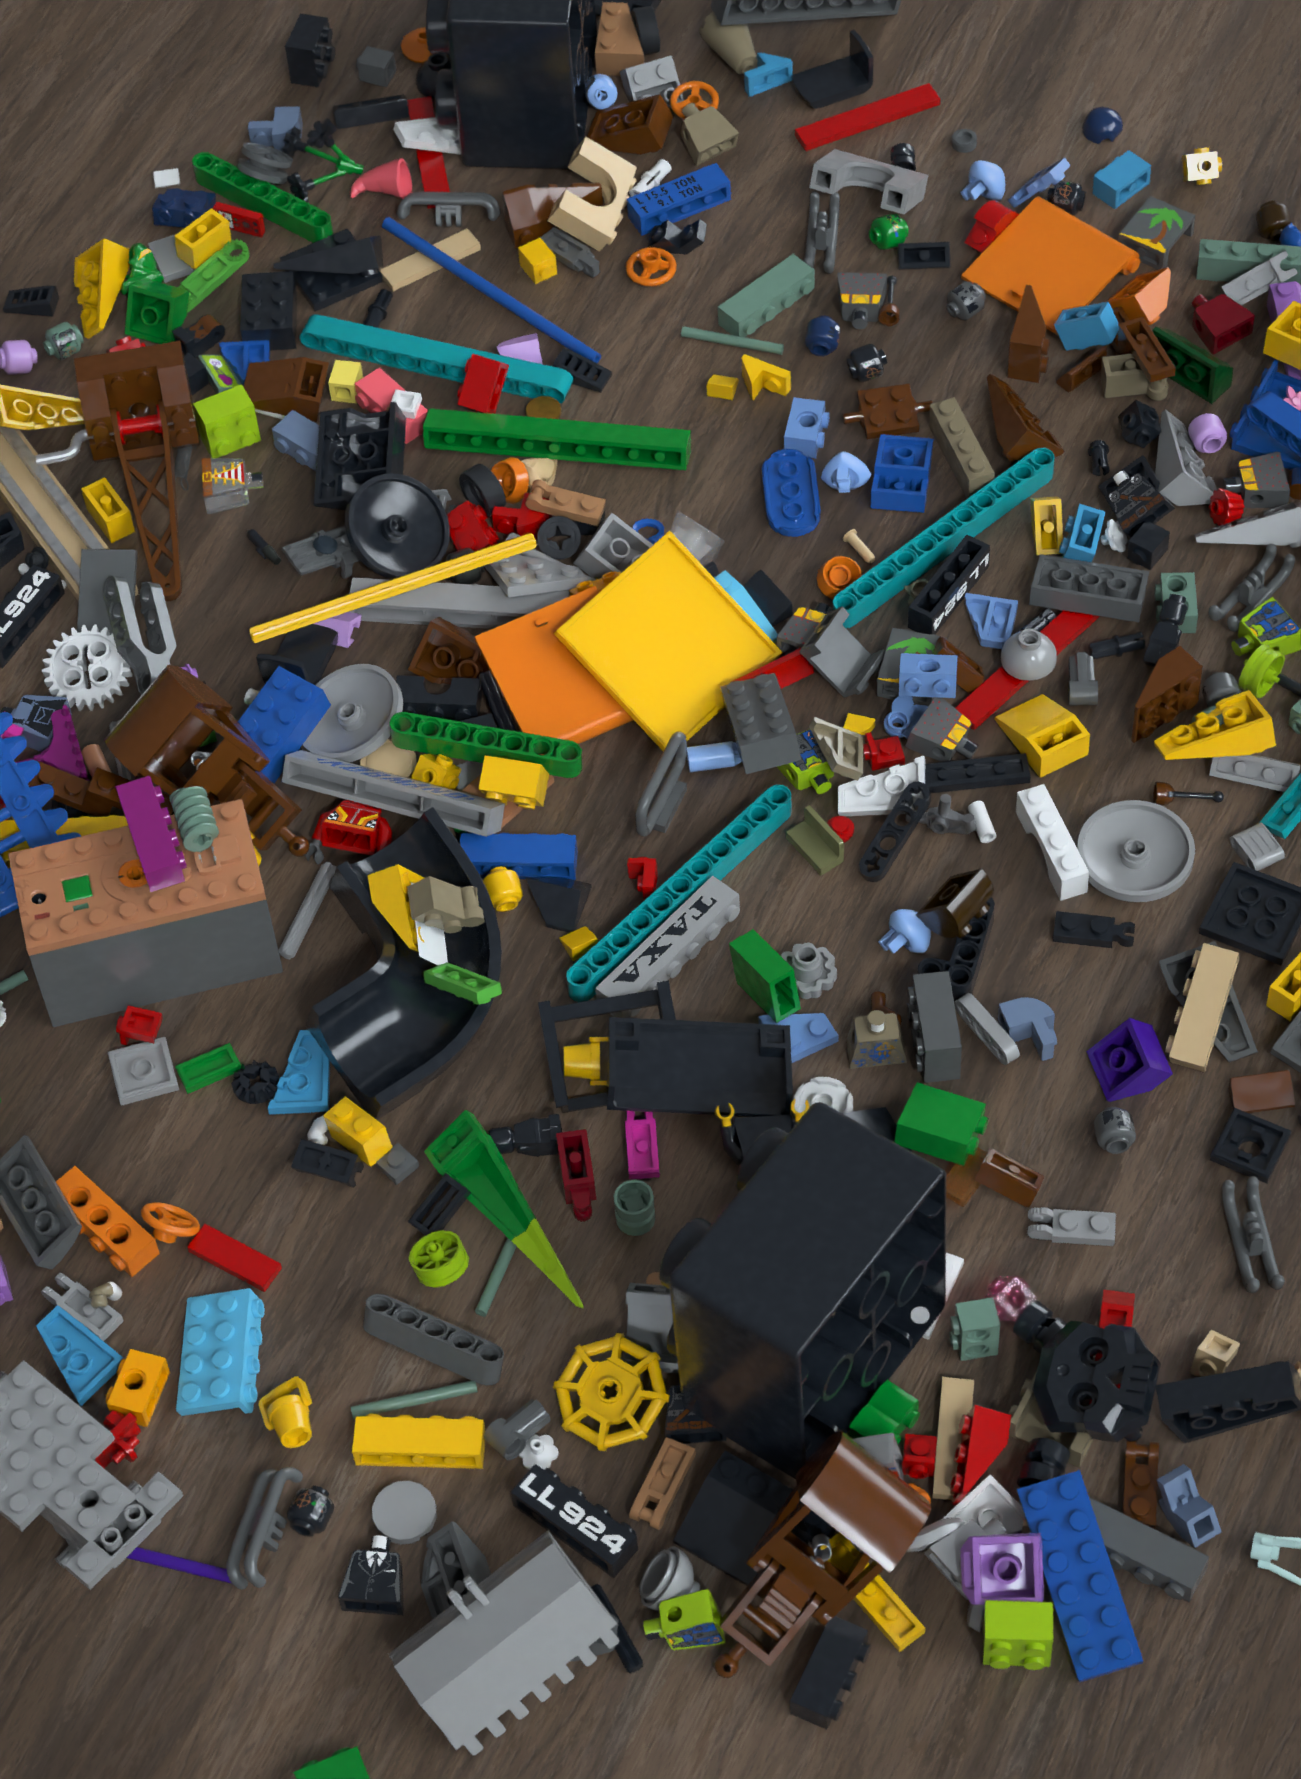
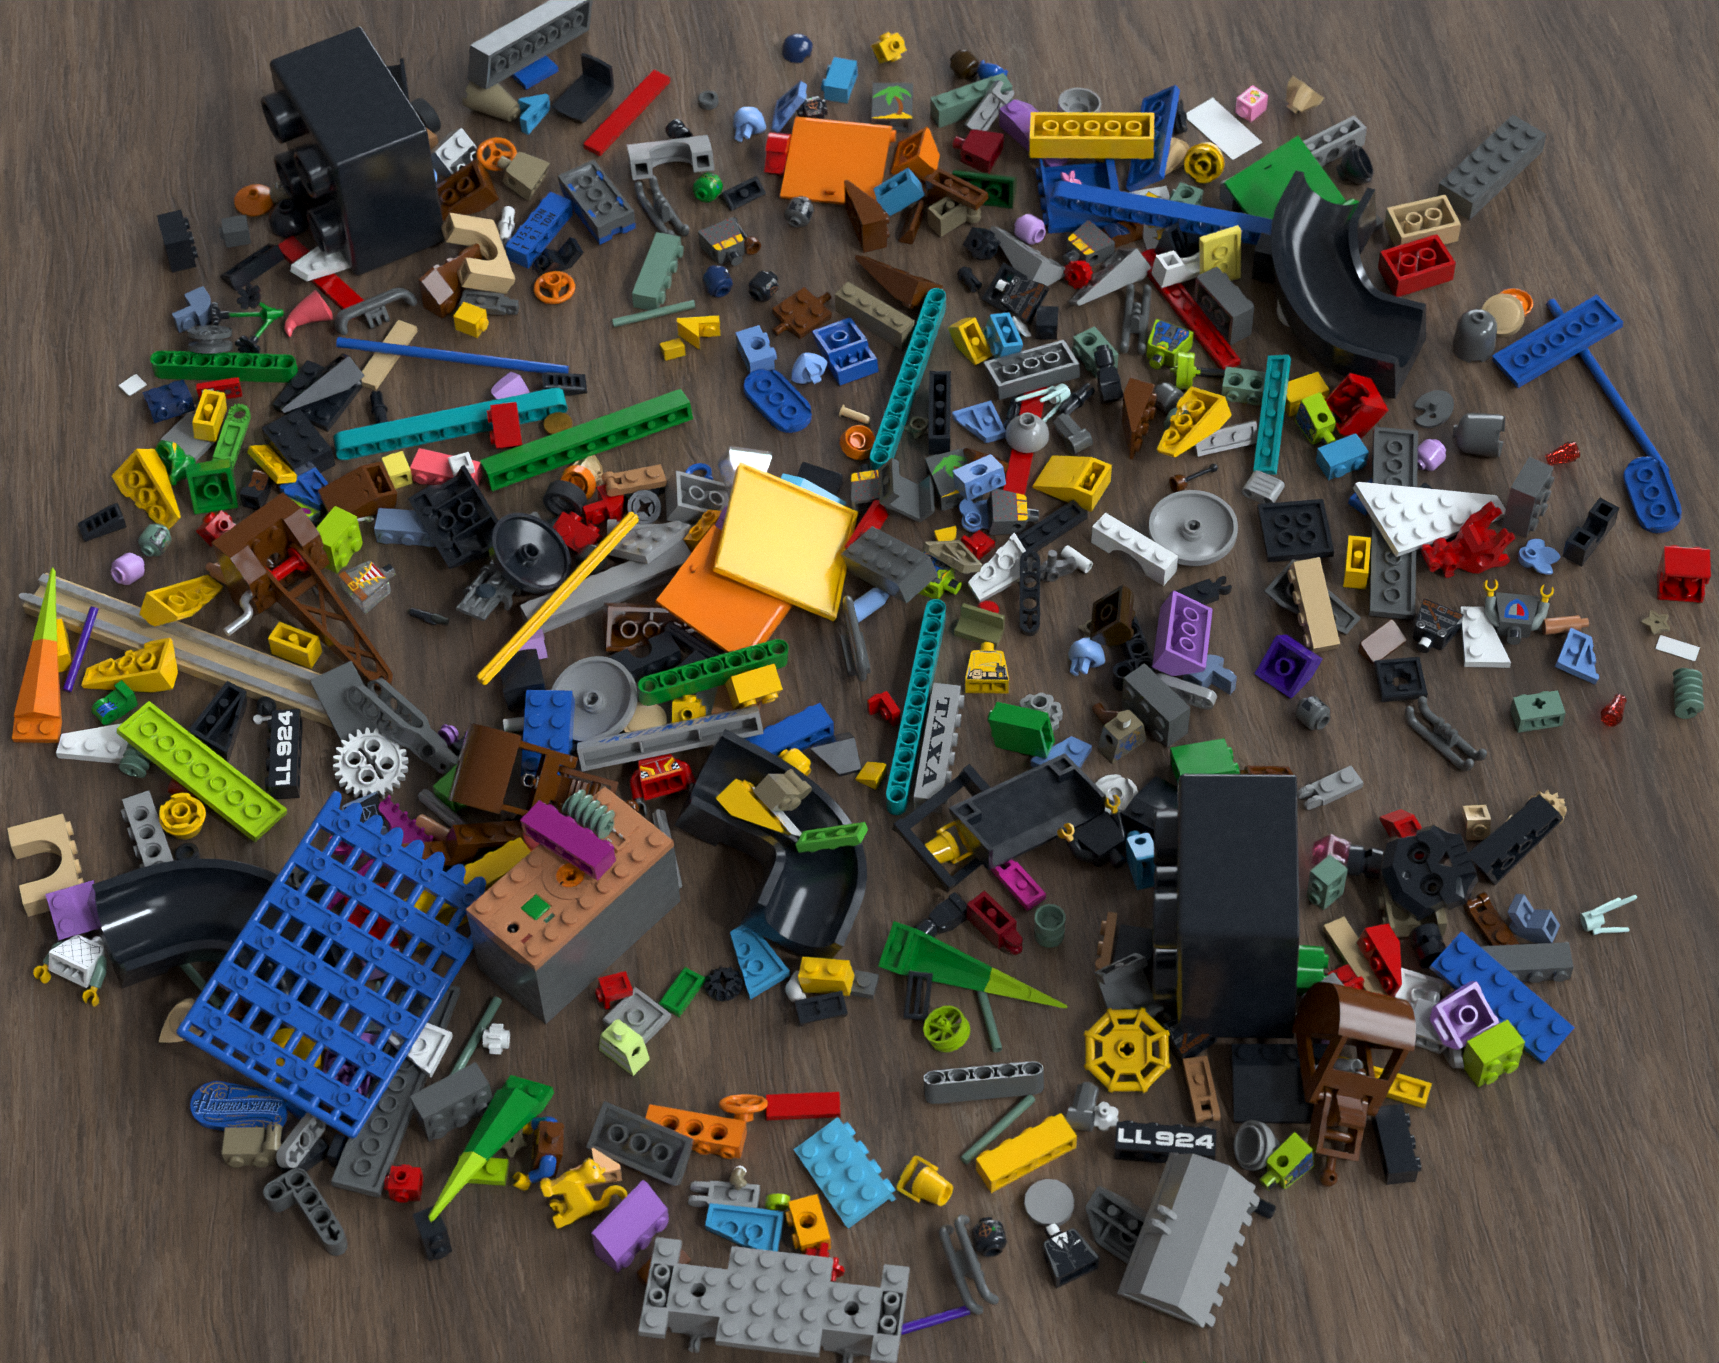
camera: 35 degrees left, 0 degrees up
(98, 1084) = (622, 1042): none -> yellowish green torso
(125, 1342) = (777, 1202): none -> lime tile
(228, 317) = (272, 464): none -> yellow tile
(757, 194) = (597, 201): none -> dark grey piece
(785, 893) = (987, 671): none -> yellow torso
(804, 33) = (535, 72): none -> blue tile
(1026, 965) = (1182, 636): none -> medium lavender slope
(1096, 628) = (1056, 395): none -> light aqua plant

